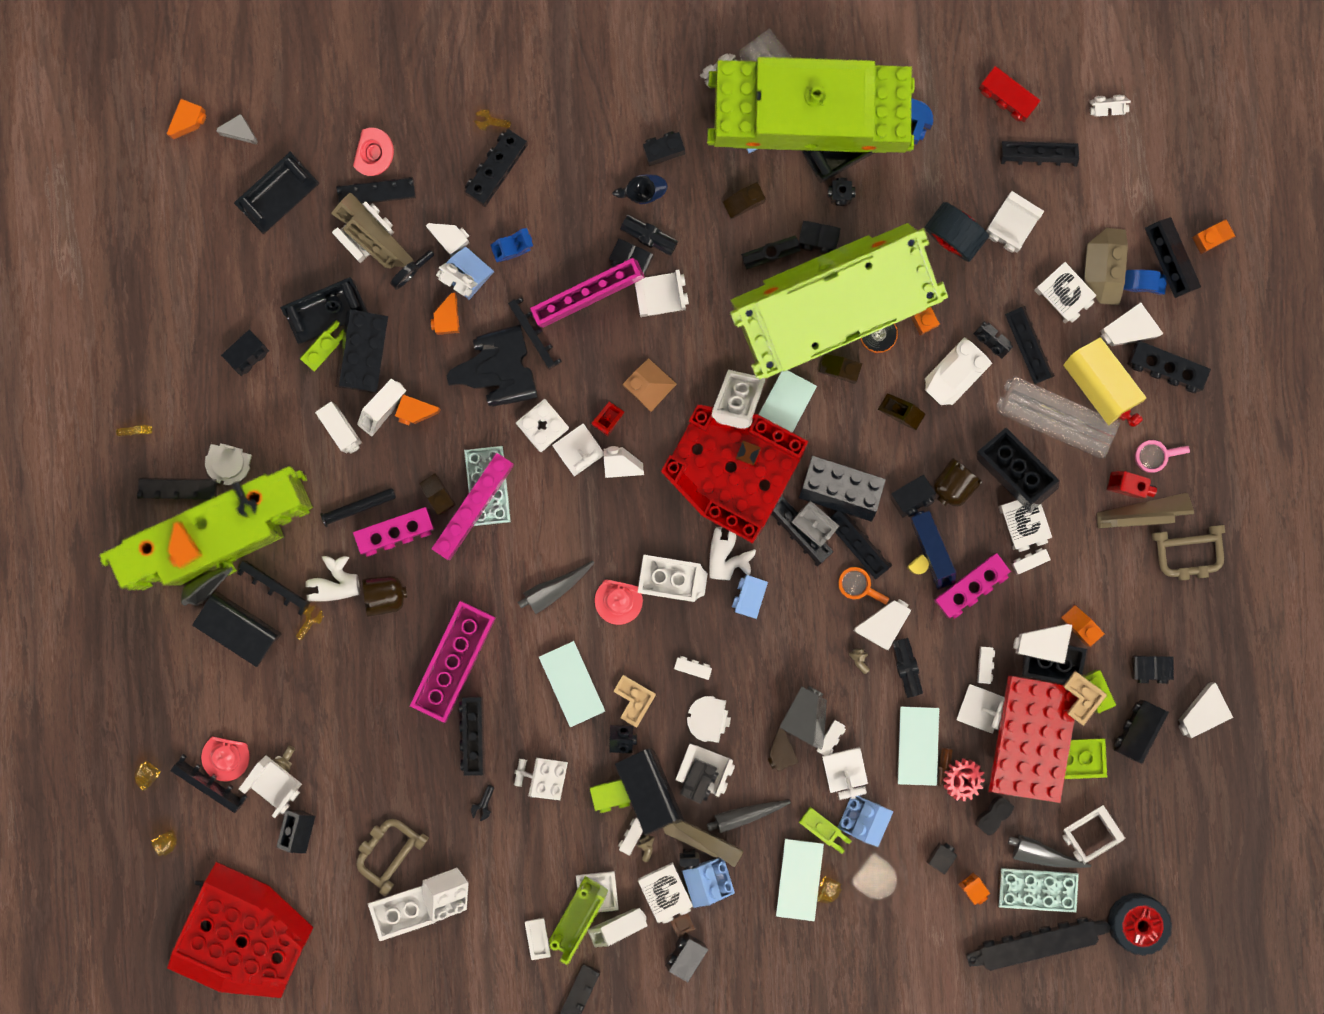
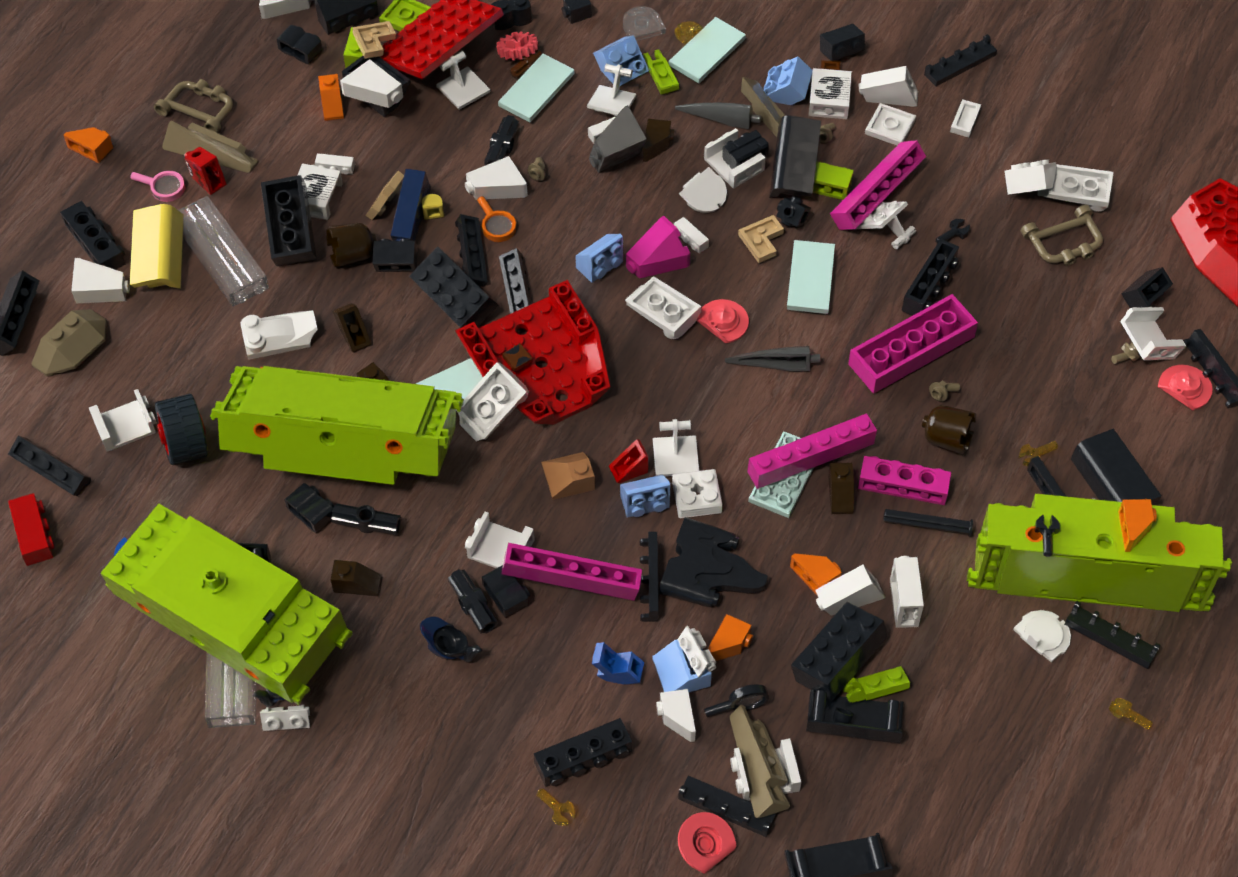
camera: 150 degrees left, 30 degrees down
(245, 353) = (966, 718): black brick -> none
(330, 591) = (1003, 466): white piece -> none
(410, 631) = (940, 390): none -> dark tan plate
(567, 810) = (878, 185): none -> dark pink brick
(577, 918) = (919, 103): lime piece -> none
(578, 396) = (645, 496): none -> light blue slope
(621, 463) = (642, 418): white slope -> none
(631, 837) = (833, 145): white piece -> none
(664, 148) = (398, 670): black brick -> none
(689, 859) = (793, 98): black plate -> none
(706, 628) = (658, 251): none -> dark pink slope
(718, 553) = (603, 296): white piece -> none
(815, 523) = (499, 280): light grey hinge -> none
(838, 198) = (257, 530): black brick -> none
(962, 555) = (386, 194): none -> tan plate
(985, 665) = (434, 114): white piece -> none
(986, 334) = (222, 332): black hinge -> none
(994, 564) = (378, 170): dark pink brick -> none
(1029, 345) = (195, 319): black hinge -> none
(1066, 292) = (128, 340): white panel -> none
(1145, 281) = (52, 306): blue brick -> none
(1245, 456) = (89, 143): none -> orange slope

